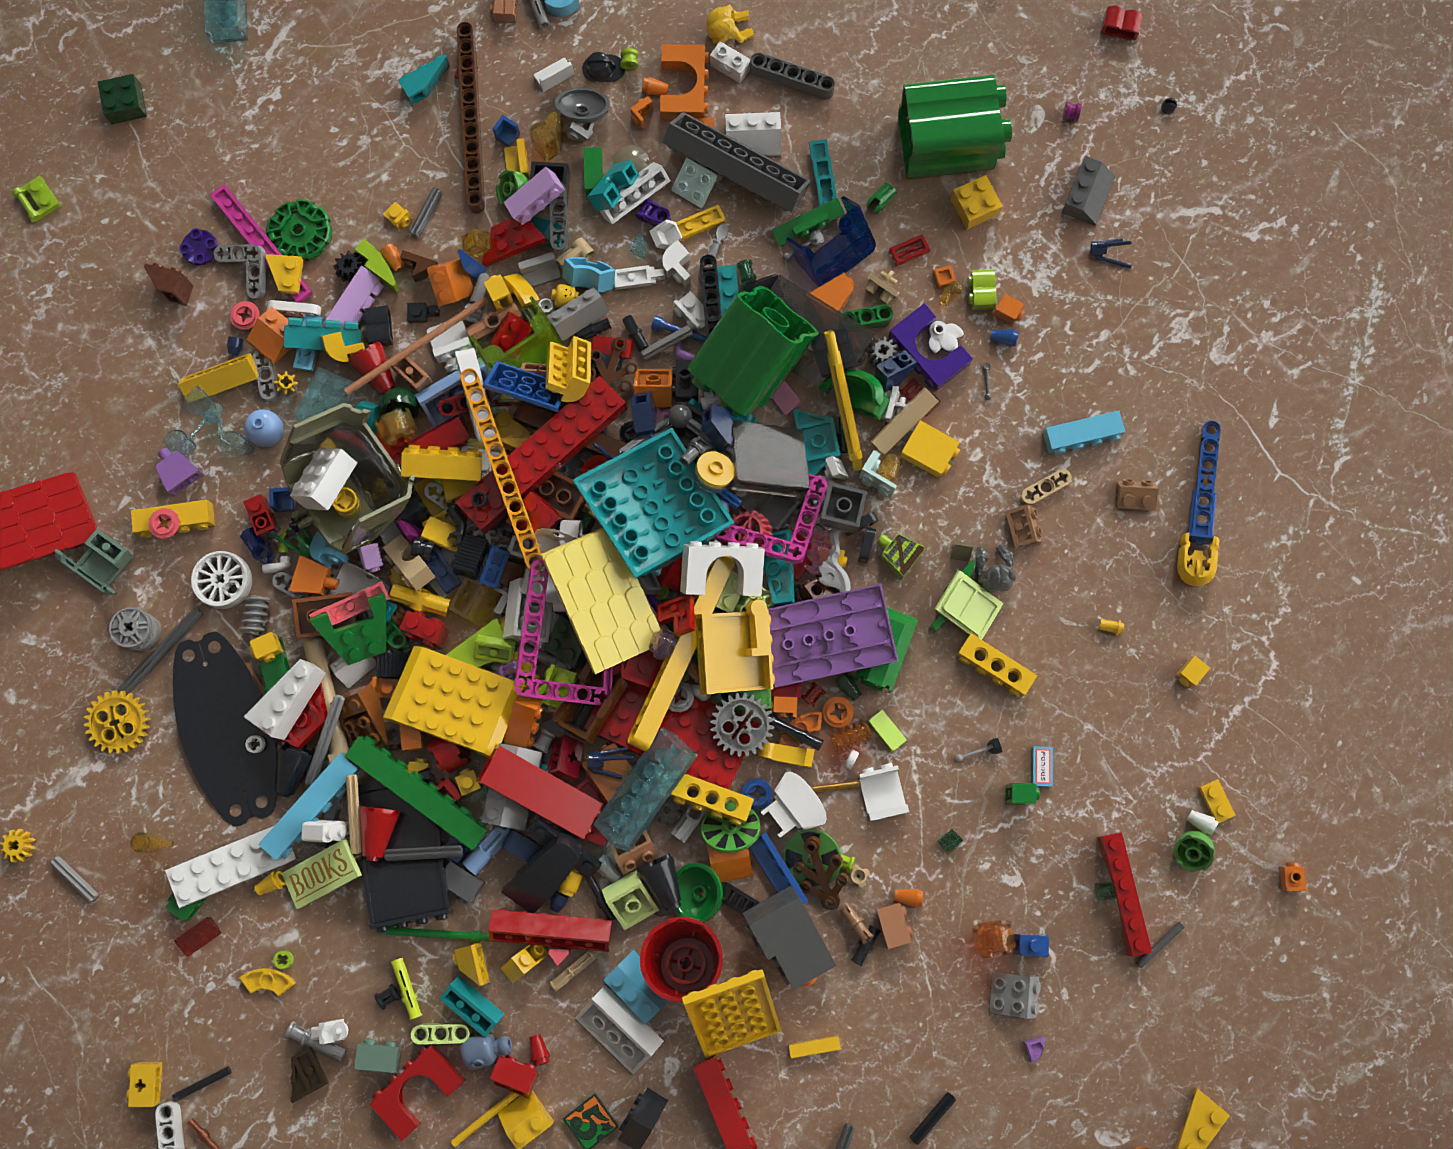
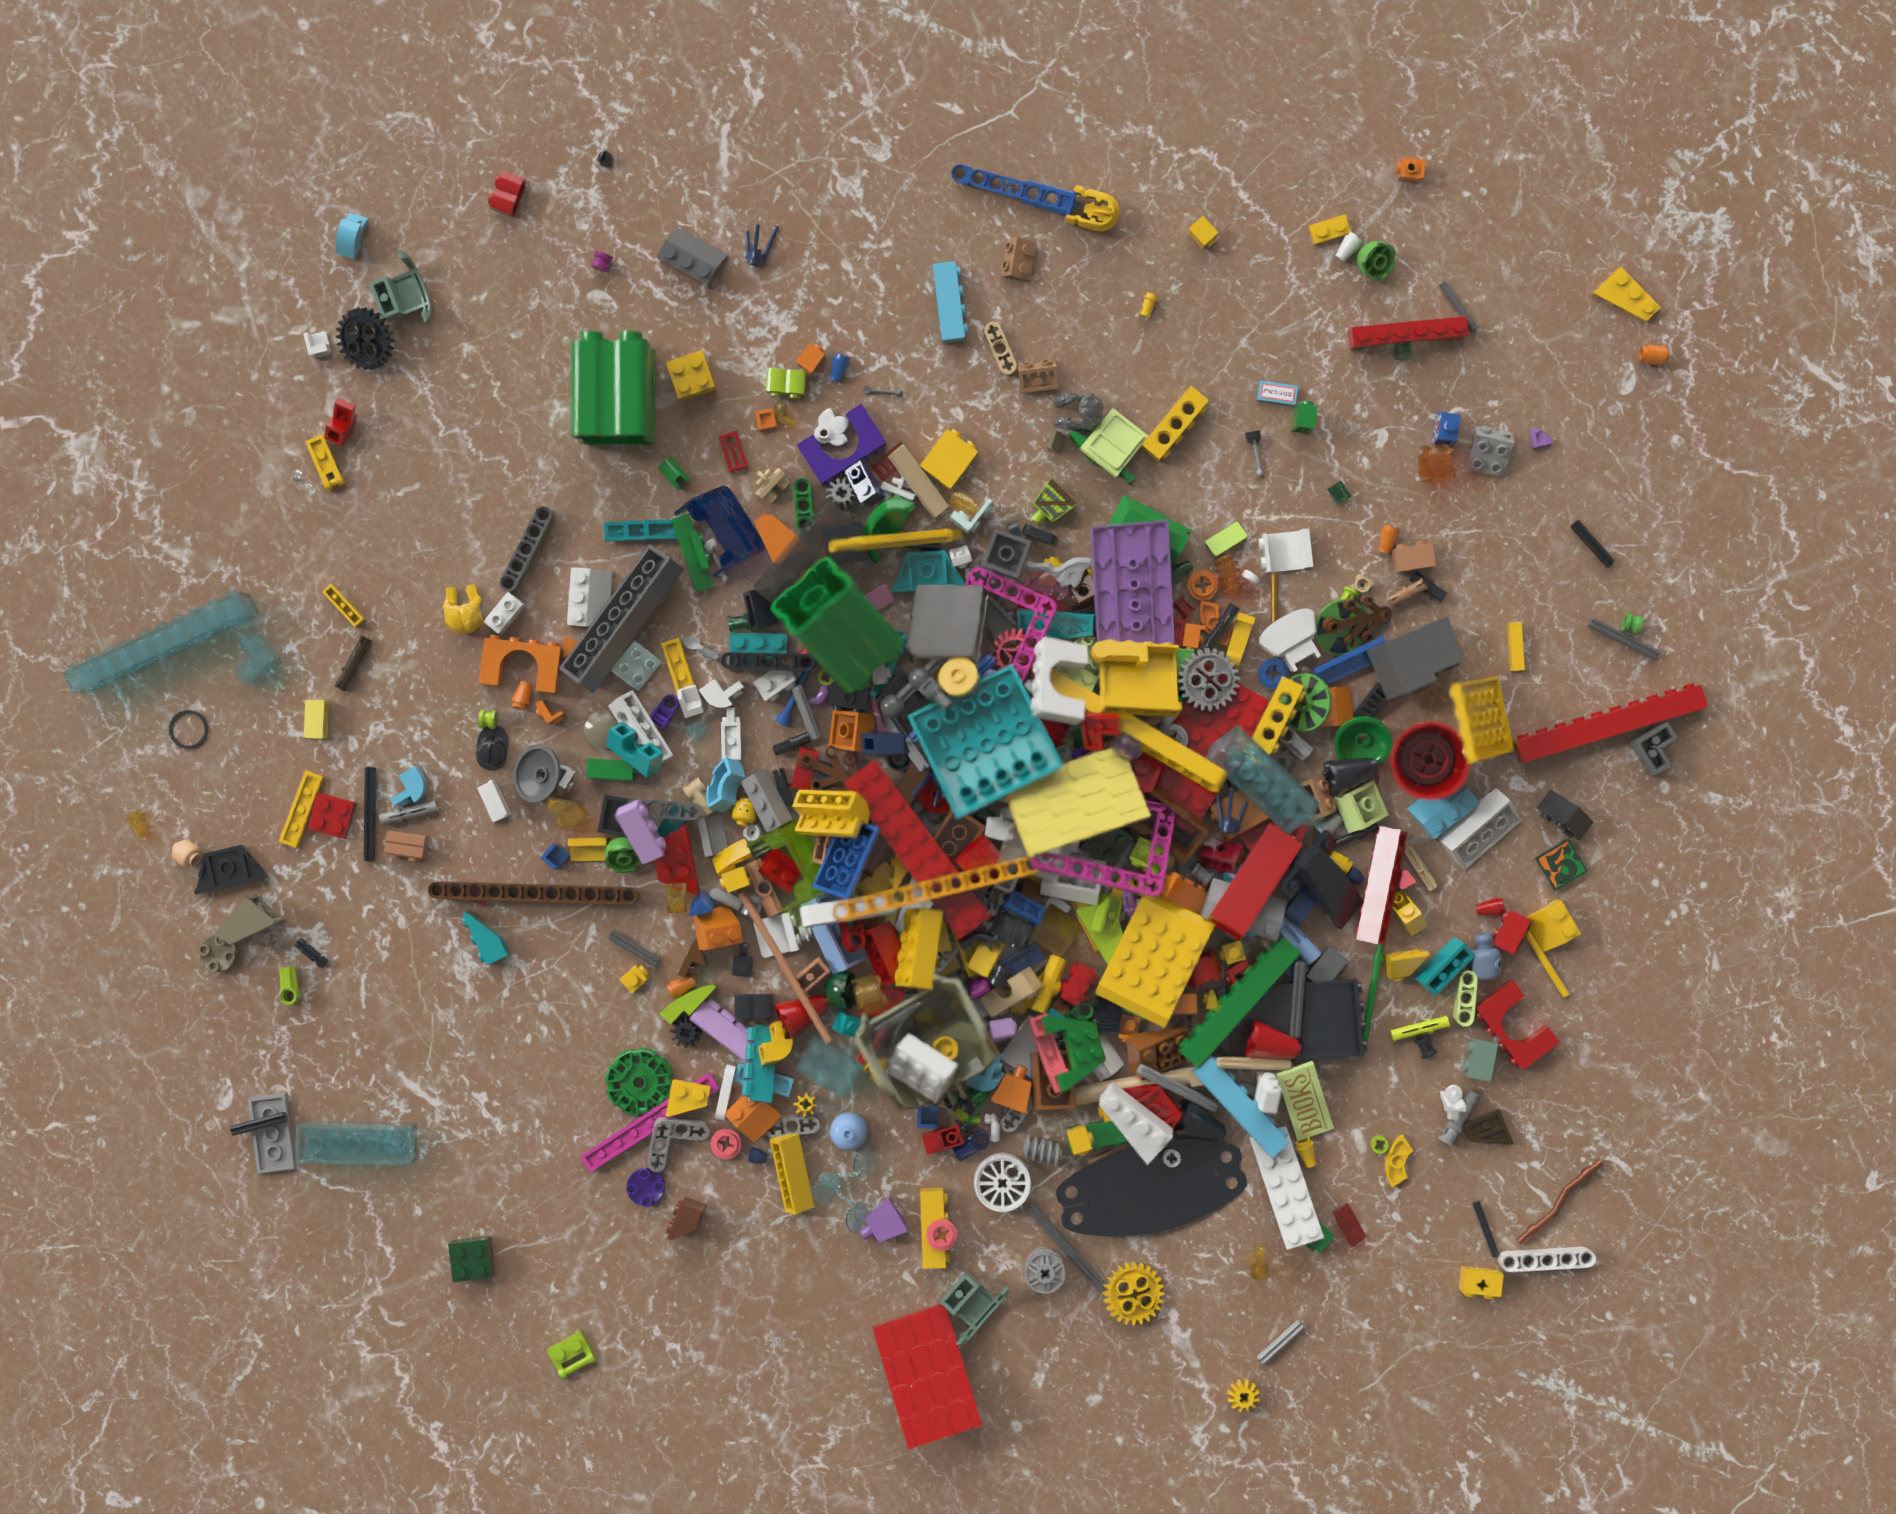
camera: 85 degrees left, 10 degrees up
(477, 501) = (963, 917): black hinge -> none
(717, 426) = (913, 669): dark blue slope -> none

